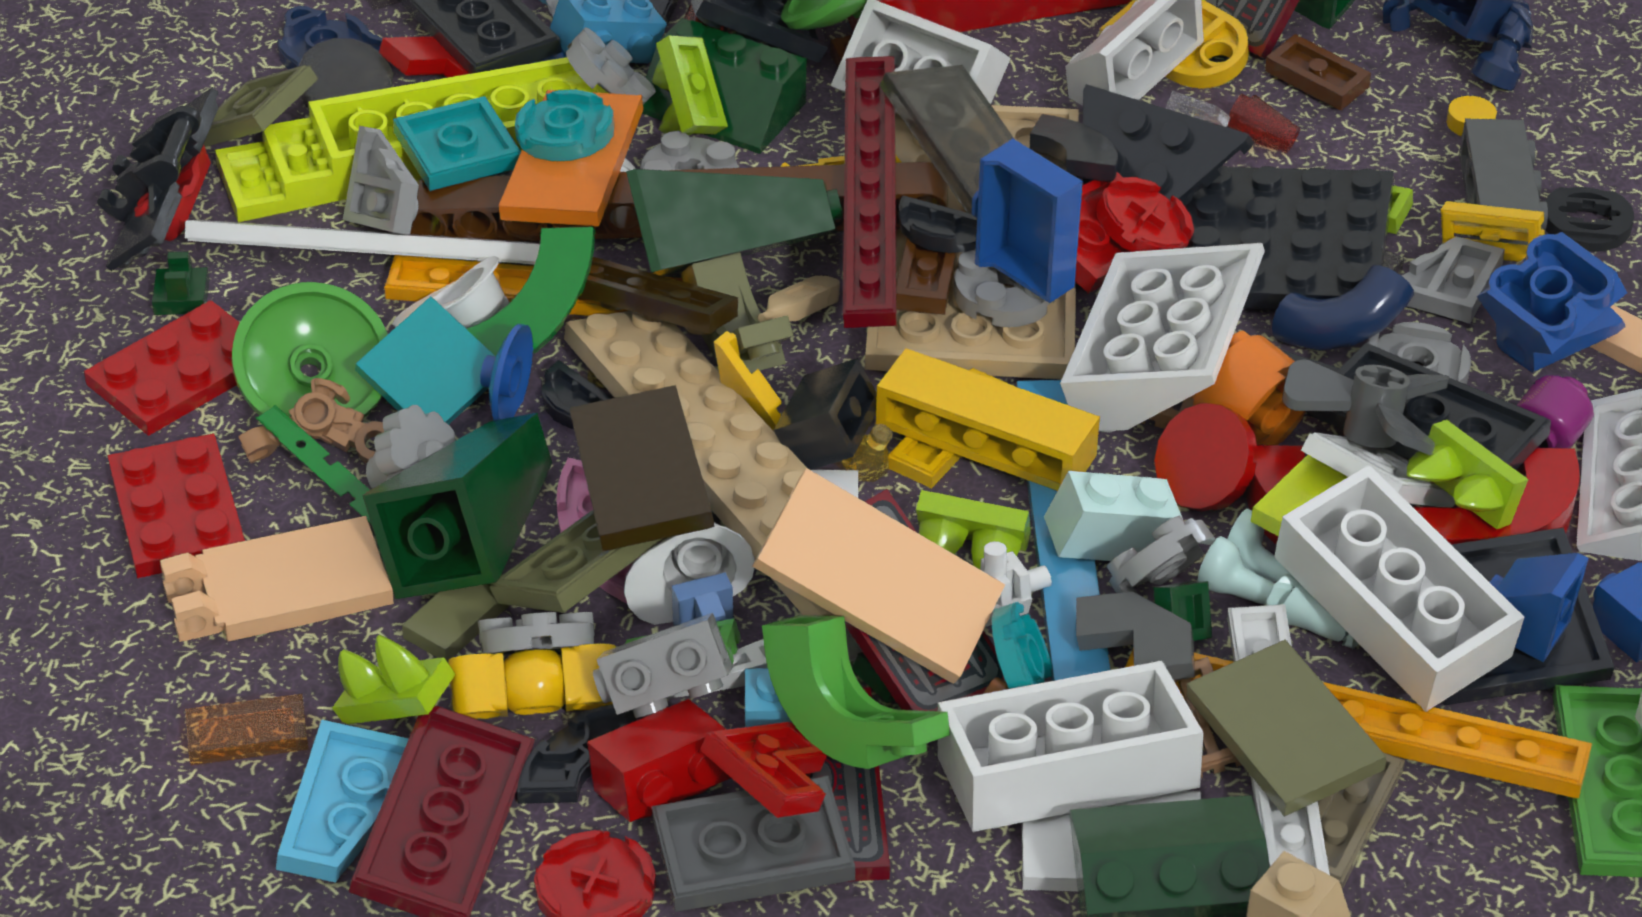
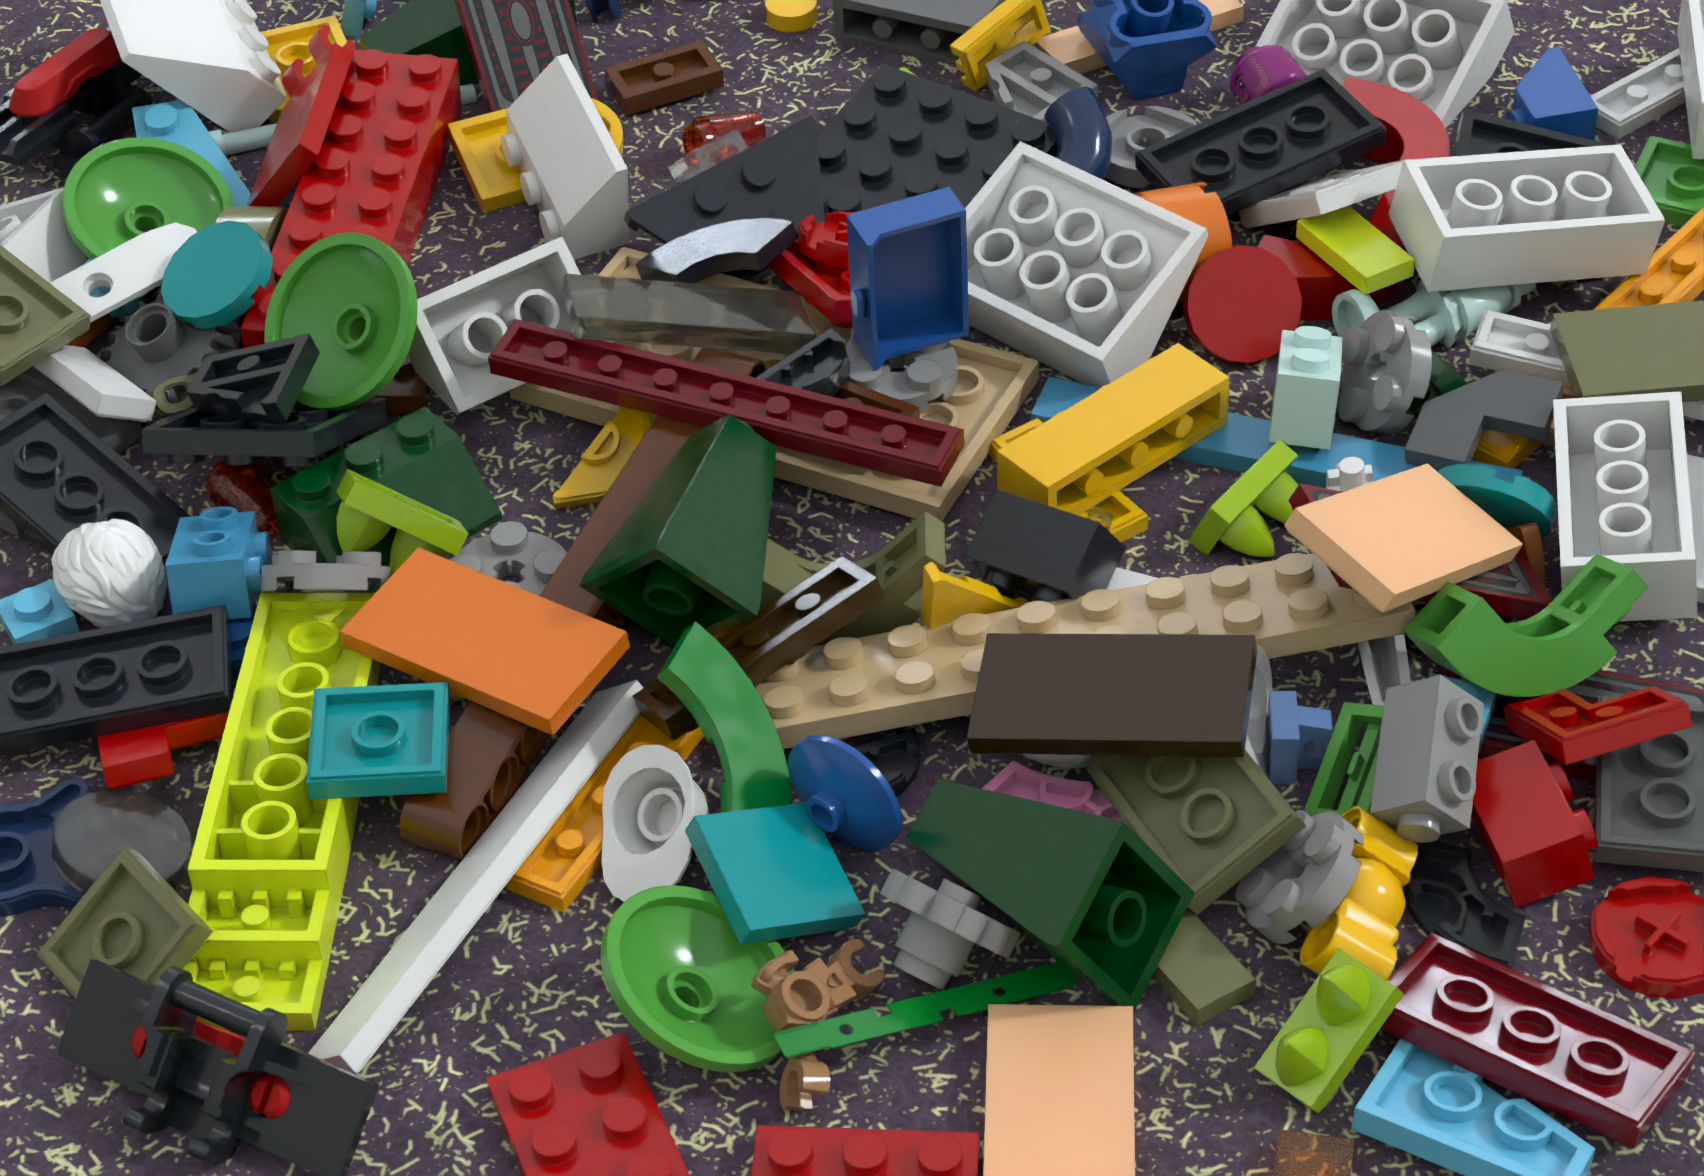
camera: 65 degrees left, 0 degrees up
(179, 286) = (433, 1111): dark green tile -> none
(380, 186) = (411, 837): light grey wing -> none
(564, 125) = (441, 623): teal tile -> none
(802, 298) = (818, 532): tan piece -> none
(1372, 401) = (1272, 152): dark grey piece -> none
(1470, 475) = (1384, 132): lime tile -> none
(1546, 595) = (1590, 116): blue slope -> none

